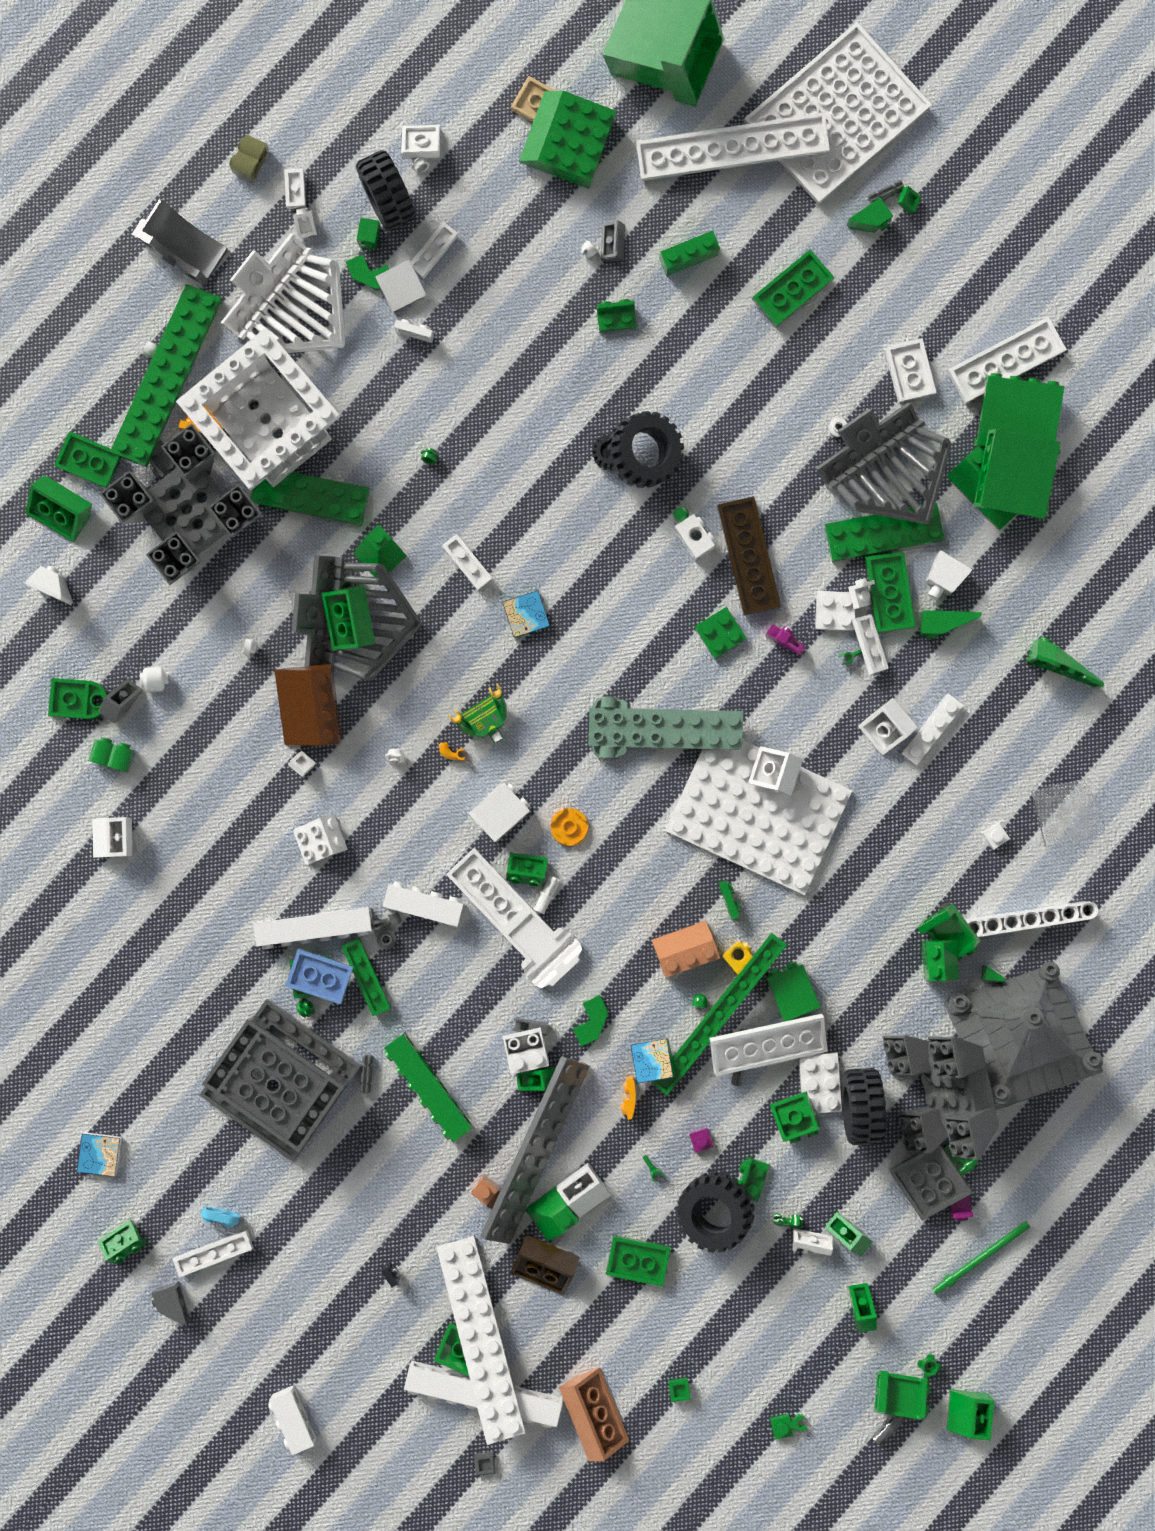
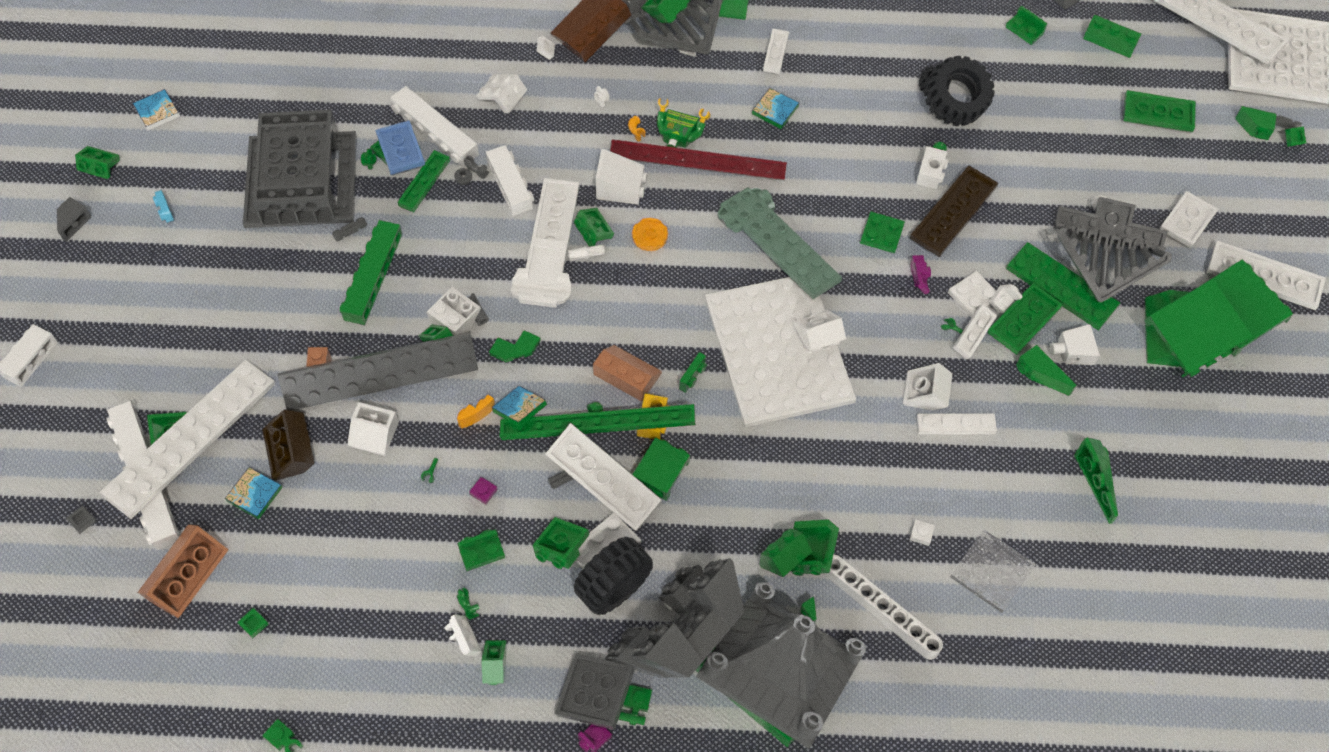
camera: 45 degrees right, 25 degrees down
(213, 1253) = (130, 221): white plate -> none
(391, 1274) = (198, 344): black plate -> none
(529, 728) = (700, 160): none -> dark red plate
(552, 1214) = (333, 425): green slope -> none
(564, 1317) = (253, 493): none -> tile
(638, 1260) = (344, 512): green plate -> none
(698, 1228) = (445, 544): black tyre -> none
(862, 1308) = (436, 721): green slope -> none

